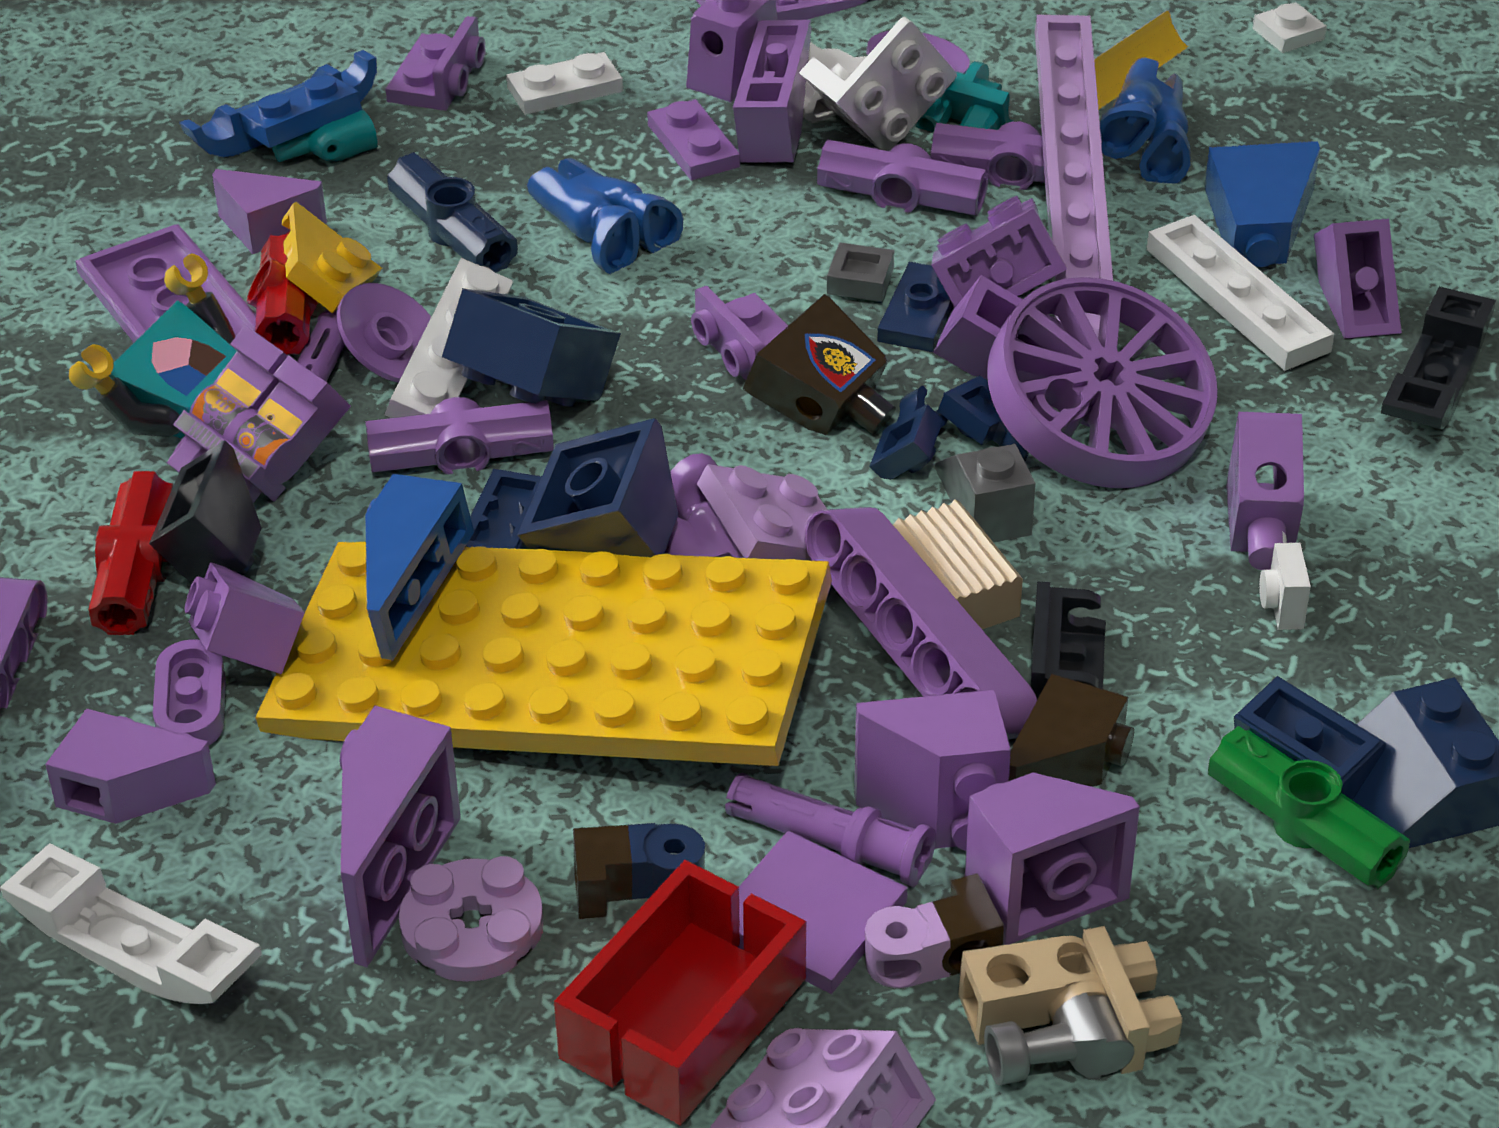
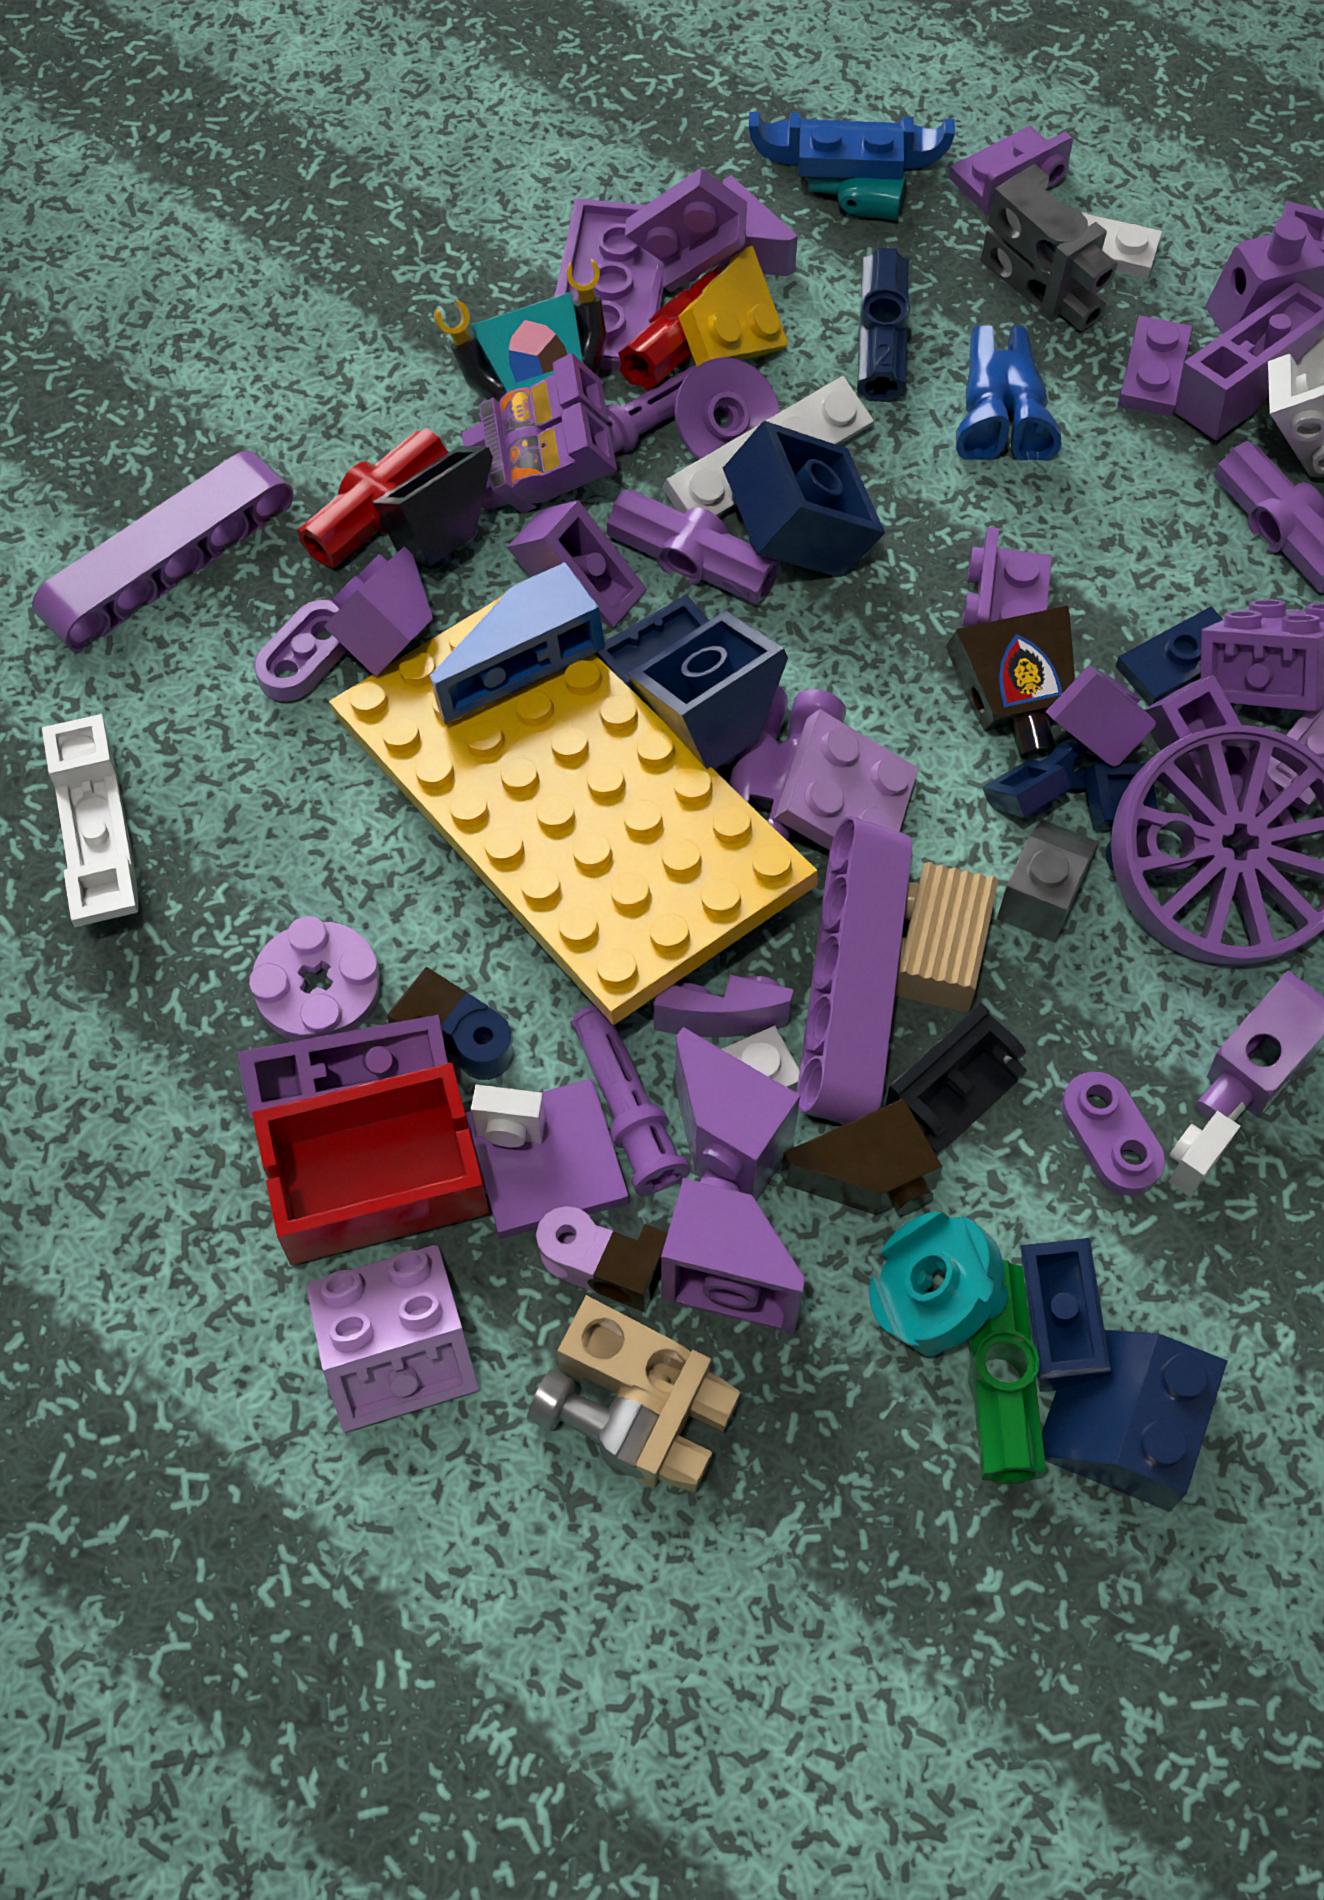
camera: 40 degrees right, 20 degrees up
(126, 768) = (202, 683): medium lavender slope -> none
(231, 213) = (690, 227): none -> medium lavender bracket
(344, 485) = (573, 537): none -> medium lavender slope
(394, 817) = (304, 860): medium lavender slope -> none
(525, 982) = (338, 1061): none -> medium lavender slope
(540, 96) = (1047, 250): none -> flat silver hips
(765, 871) = (508, 1115): none -> white plate
(829, 728) = (745, 1009): none -> medium lavender slope
(860, 272) = (1159, 590): flat silver plate -> none
(926, 351) = (1102, 715): none -> medium lavender slope
(1209, 621) = (1112, 1130): none -> medium lavender plate
(1235, 791) = (963, 1301): none -> teal plate

